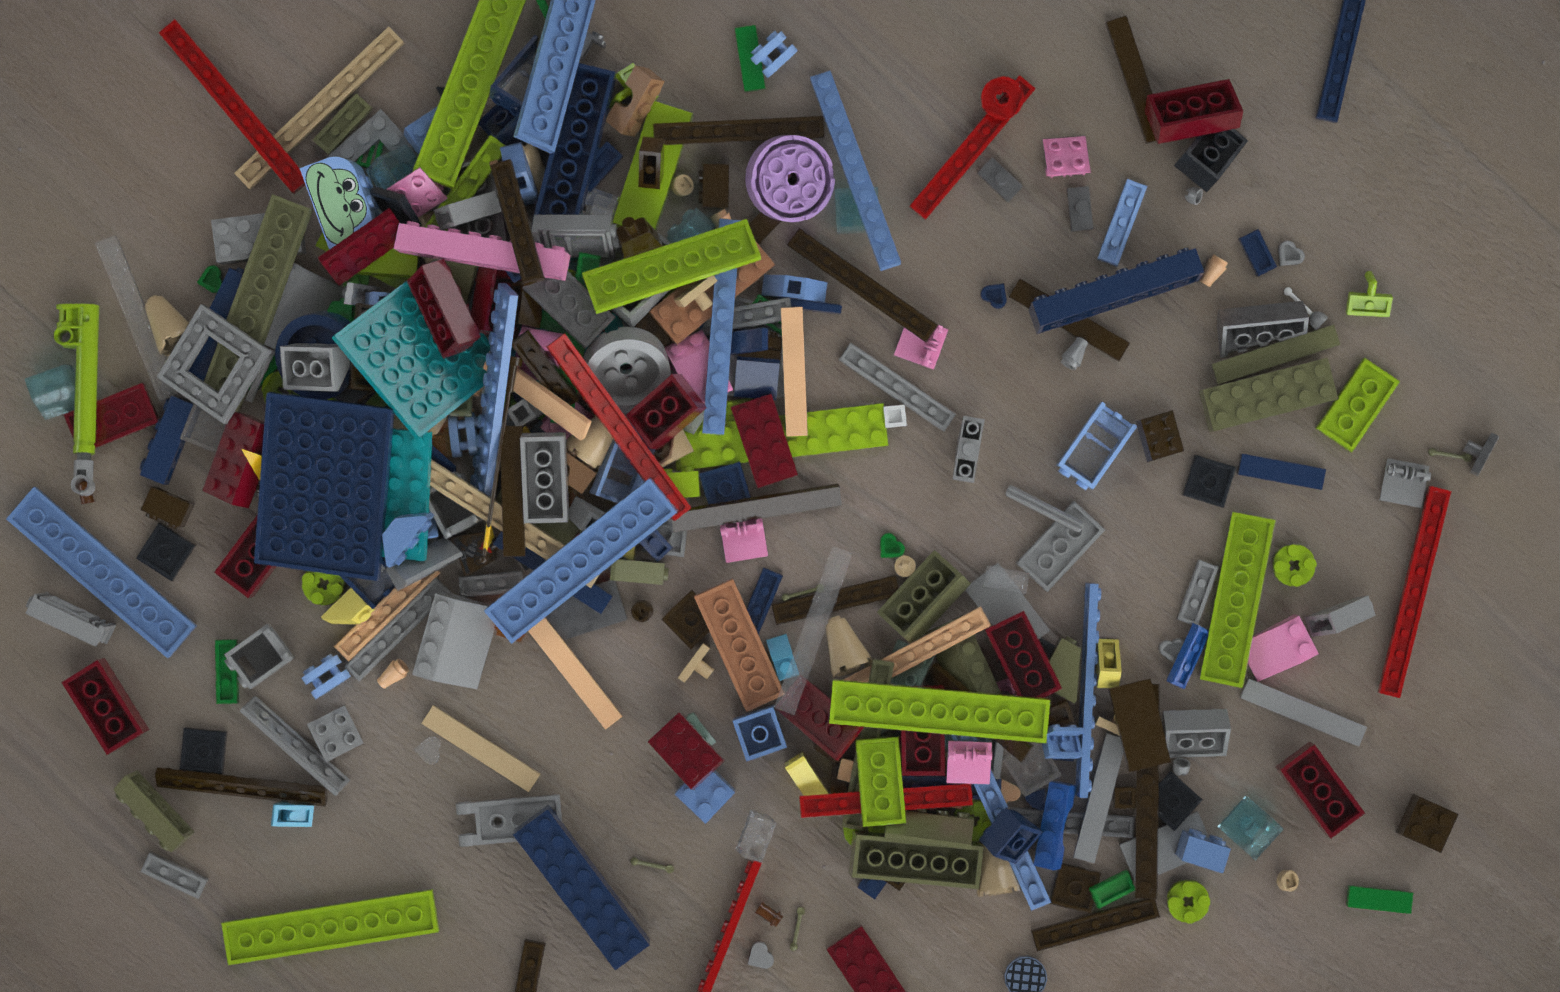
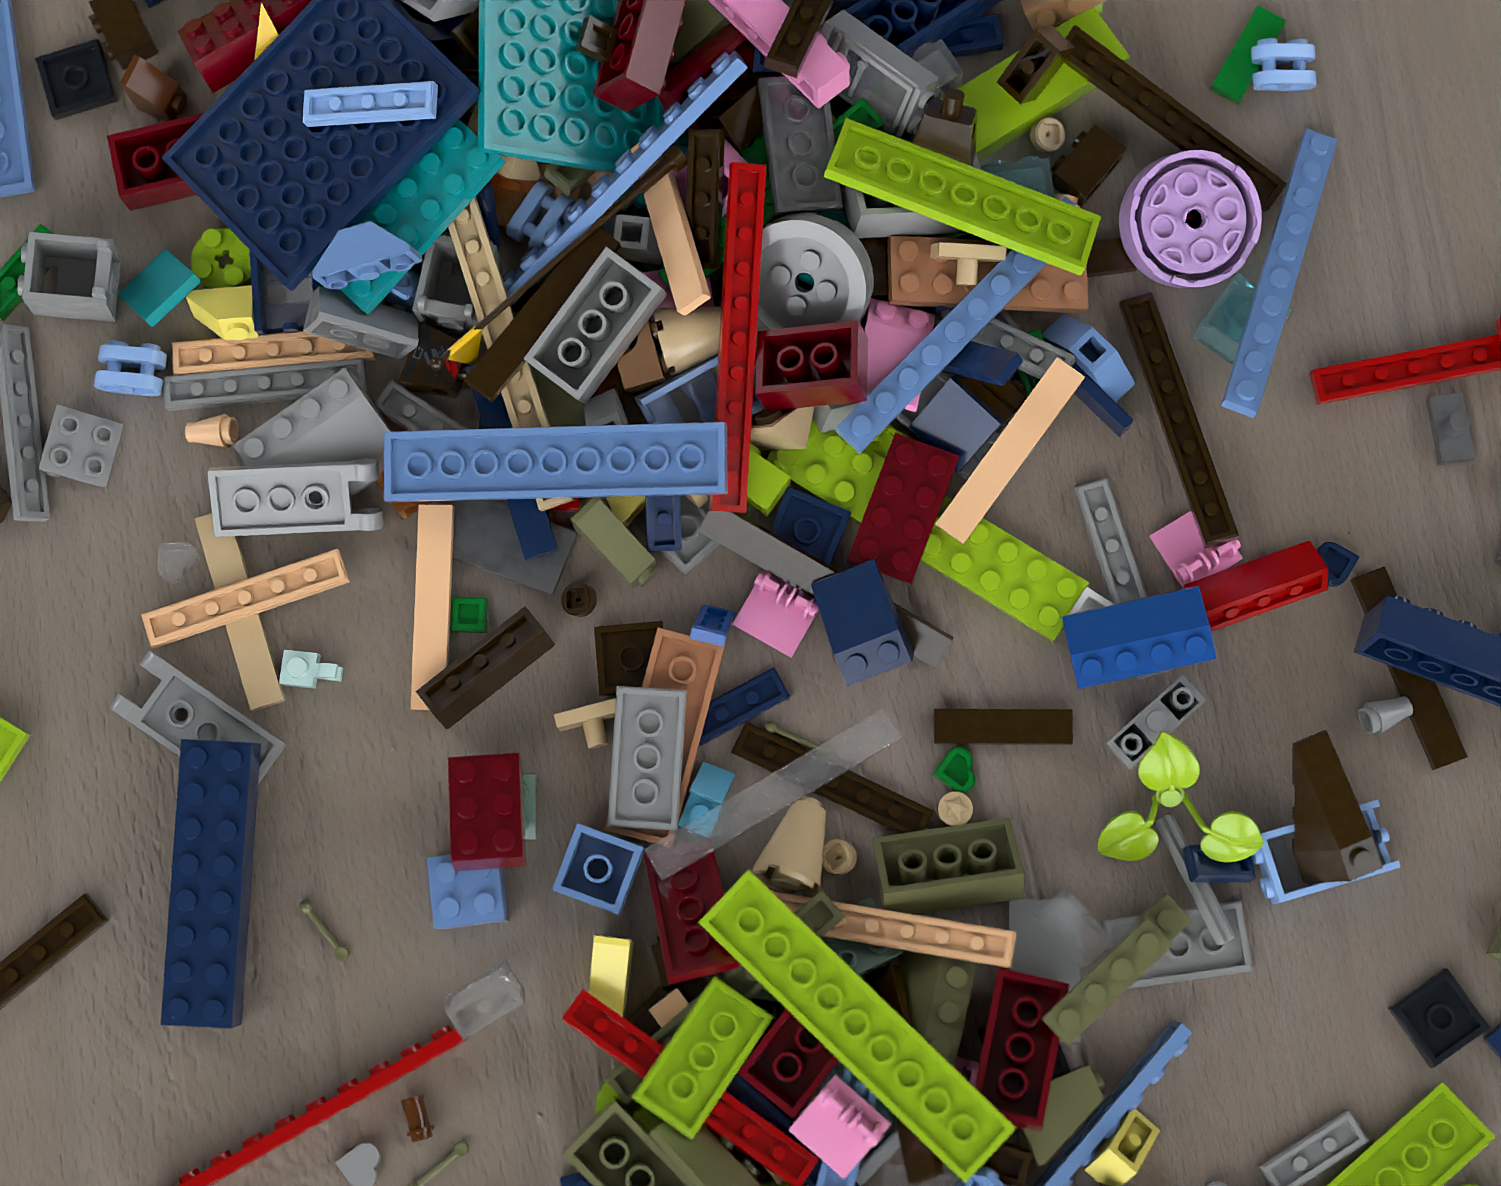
camera: 45 degrees right, 10 degrees down
(215, 528) = (153, 90): none -> reddish brown slope
(304, 625) = (159, 287): none -> teal tile
(342, 458) = (370, 104): none -> light blue tile
(423, 330) = (596, 39): none -> dark brown plate
(457, 682) = (279, 501): none -> light grey hinge
(480, 741) = (245, 598): none -> light nougat tile
(538, 752) = (304, 669): none -> light aqua plate
(594, 661) = (469, 614): none -> green tile
(625, 681) = (485, 668): none -> dark brown panel
(718, 573) = (712, 625): none -> blue plate
(739, 662) = (647, 758): none -> light grey tile
(790, 514) = (862, 622): none -> dark blue slope
(867, 633) = (839, 857): none -> tan tile
(896, 507) = (1003, 726): none -> dark brown tile
(928, 414) = (1139, 637): none -> blue slope
(965, 339) = (1262, 585): none -> red panel
(996, 472) = (1167, 770): none -> lime plant
(1041, 584) = (1118, 969): none -> olive arch
(1050, 492) = (1204, 869): none -> dark blue tile
(1086, 434) = (1330, 828): none -> dark brown wedge
(1159, 436) = (1419, 905): dark brown plate -> none

